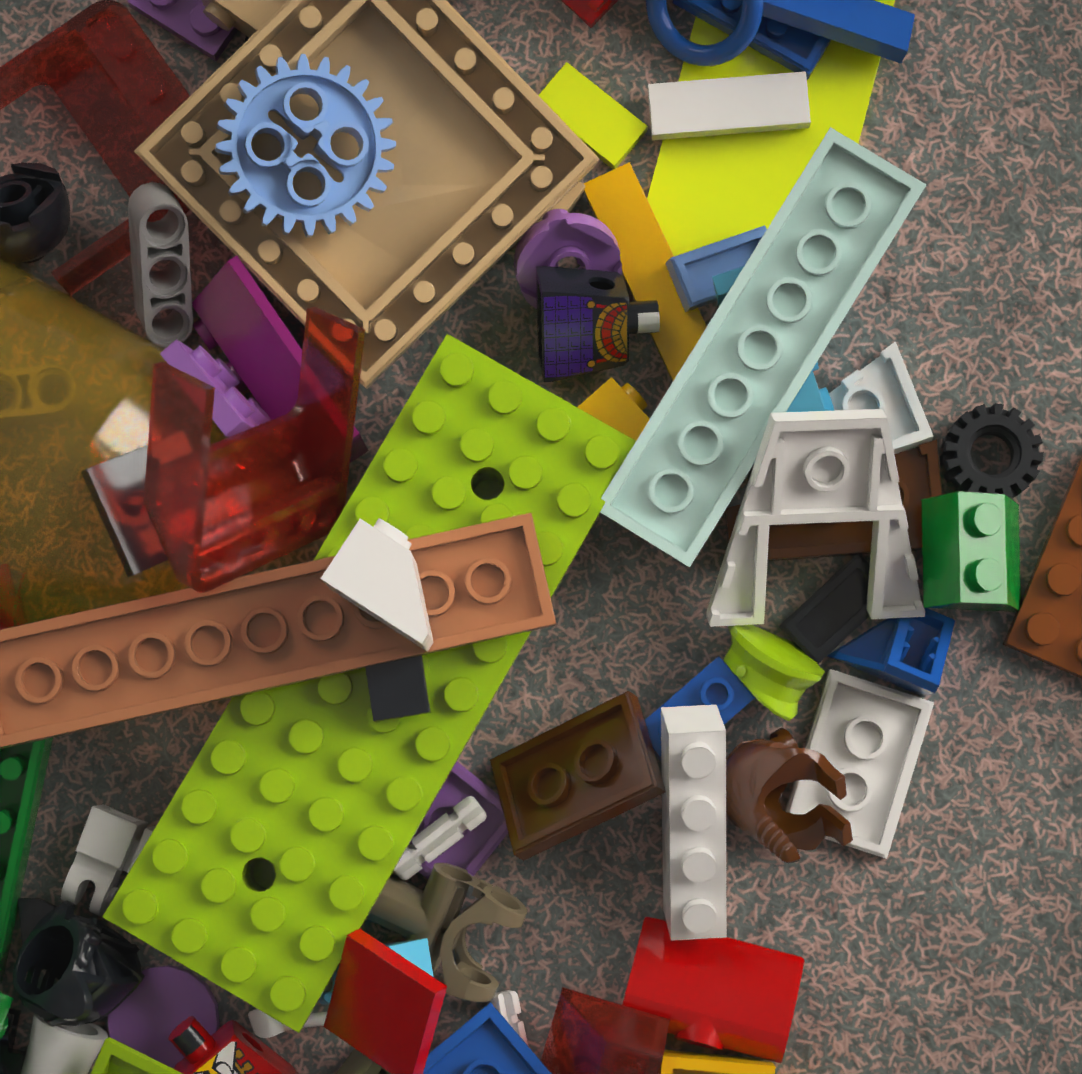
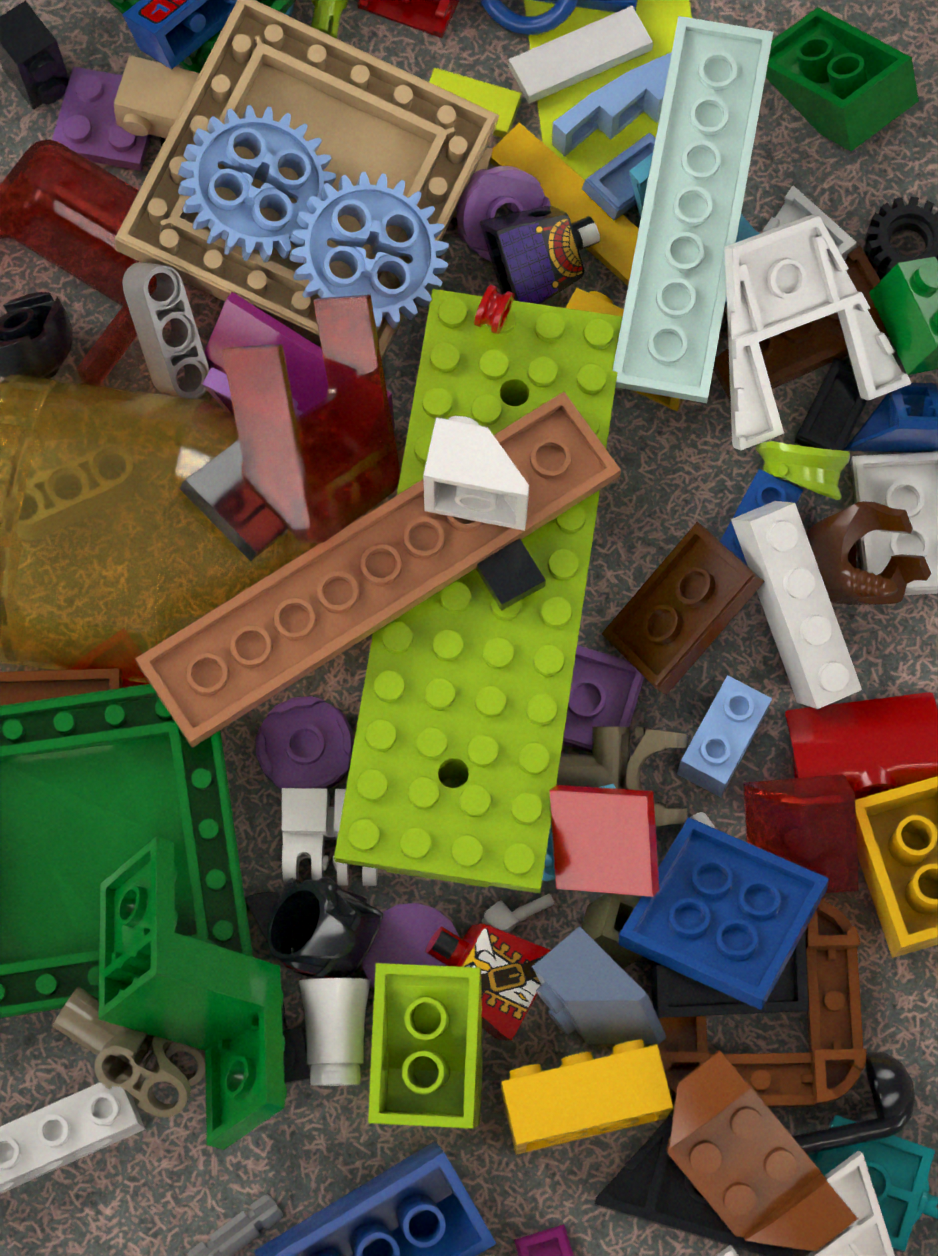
camera: 25 degrees left, 10 degrees down
(159, 759) = (309, 760): none -> medium lavender tile
(419, 223) = (375, 210): none -> light blue gear
(440, 836) = (588, 704): white axle -> none
(496, 389) = (494, 309): none -> red bush
(567, 925) = (724, 736): none -> light blue brick
(738, 180) = (614, 105): none -> light blue slope
(995, 237) = (841, 78): none -> green slope

